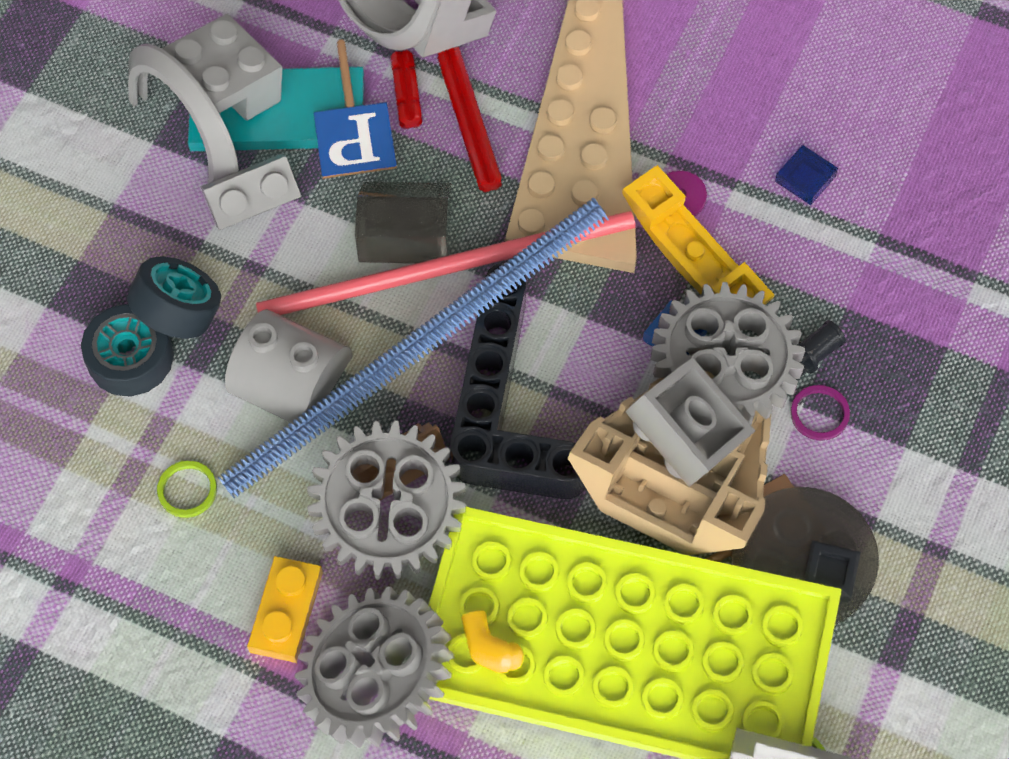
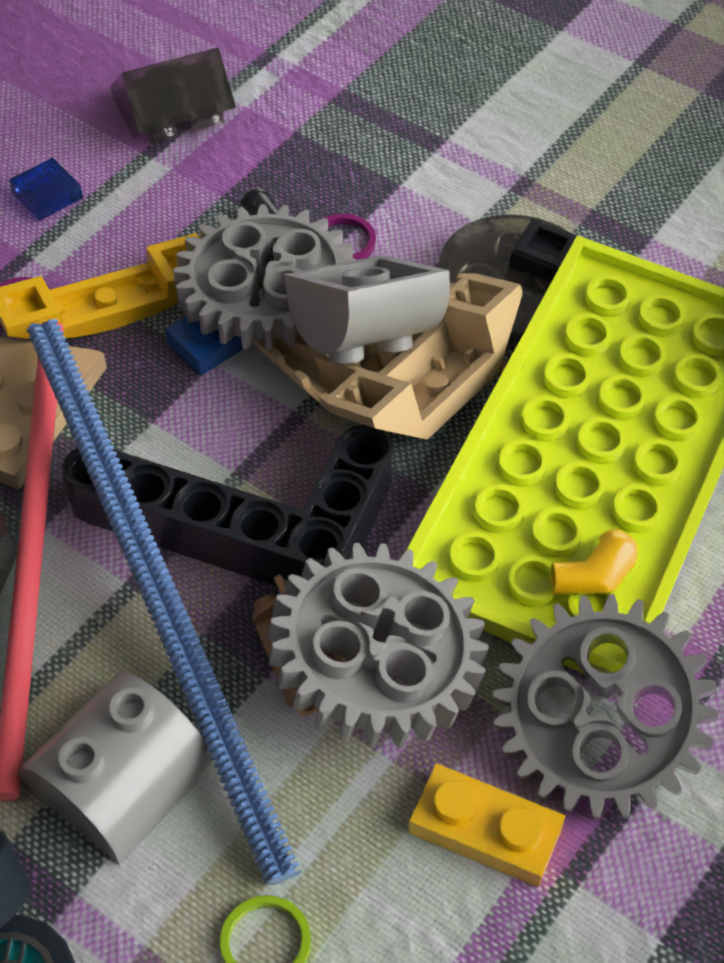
camera: 80 degrees left, 10 degrees down
(939, 235) = (174, 95): none -> clear smoke slope

